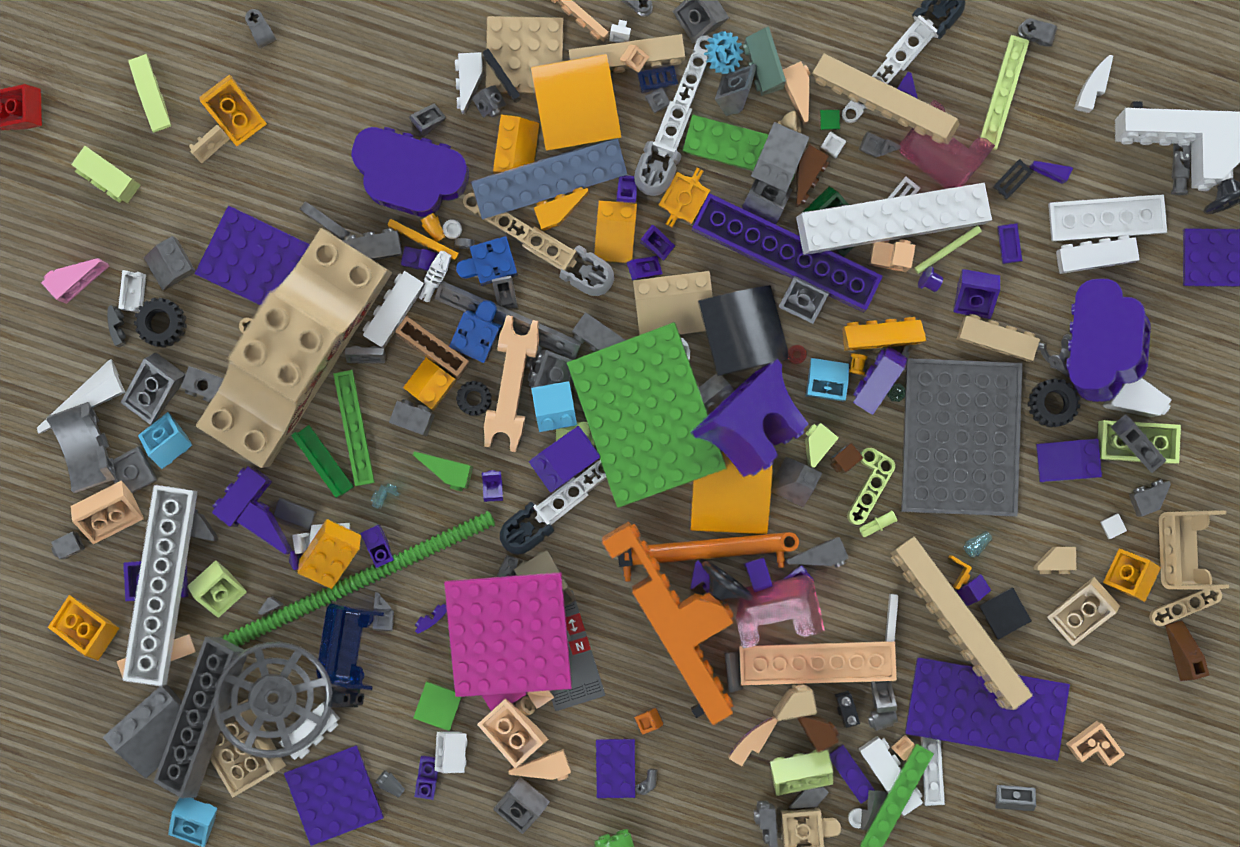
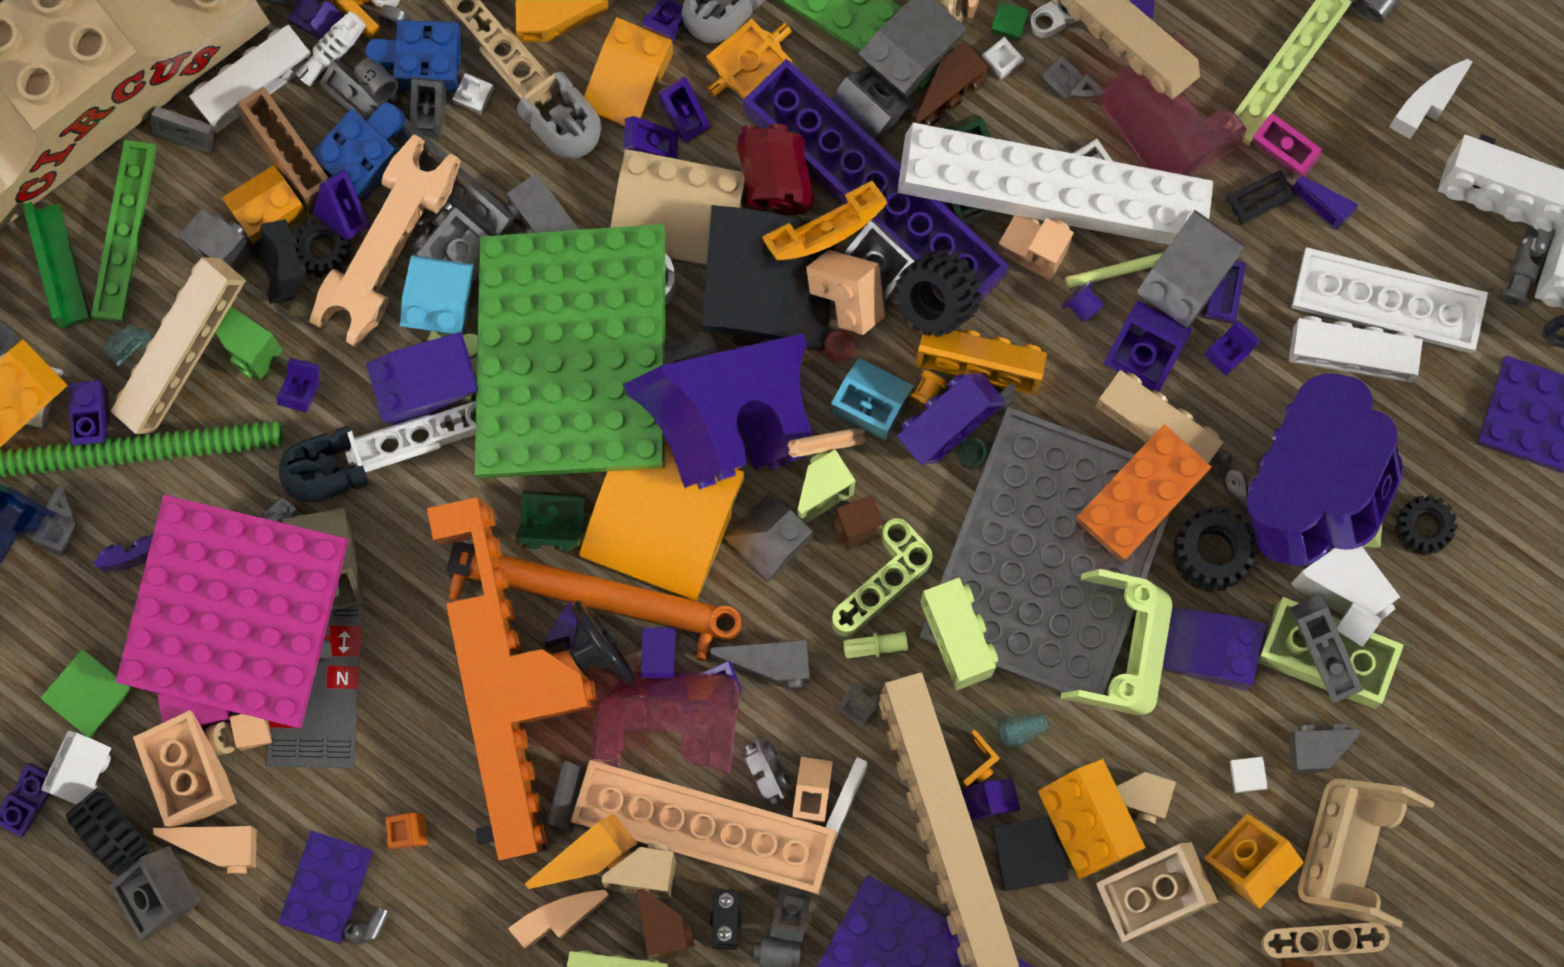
camera: 20 degrees right, 10 degrees down
(417, 490) = (177, 345): none -> tan brick
(452, 413) = (280, 260): none -> black brick
(470, 288) = (377, 81): none -> flat silver piece
(479, 373) = (340, 207): none -> dark purple slope
(484, 783) = (107, 832): none -> black tyre
(527, 273) = (473, 93): none -> white tile
(668, 517) = (551, 520): none -> dark green bracket
(726, 264) = (775, 169): none -> dark red brick
(760, 704) = (590, 854): none -> light orange slope
(771, 290) = (828, 229): none -> light orange slope
(793, 318) = (853, 287): none -> light nougat brick
(813, 419) = (826, 442): none -> light nougat axle
(837, 610) = (764, 757): none -> flat silver hinge
(849, 297) = (953, 280): none -> black tyre
(871, 621) = (812, 790): none -> light nougat slope
(880, 563) = (858, 705): none -> flat silver tile
(927, 505) = (959, 633): none -> yellowish green brick
(989, 242) = (1191, 269): none -> flat silver slope
(1005, 386) = (1143, 493): none -> orange brick
(1020, 144) = (1287, 145): none -> dark pink brick
(1025, 278) = (1232, 348): none -> dark purple bracket
(1033, 468) = (1139, 687): none -> yellowish green windscreen
(1035, 585) = (1091, 819): none -> light orange brick
(1152, 423) = (1358, 624): none -> white tile
(1179, 340) = (1441, 514): none -> black tyre

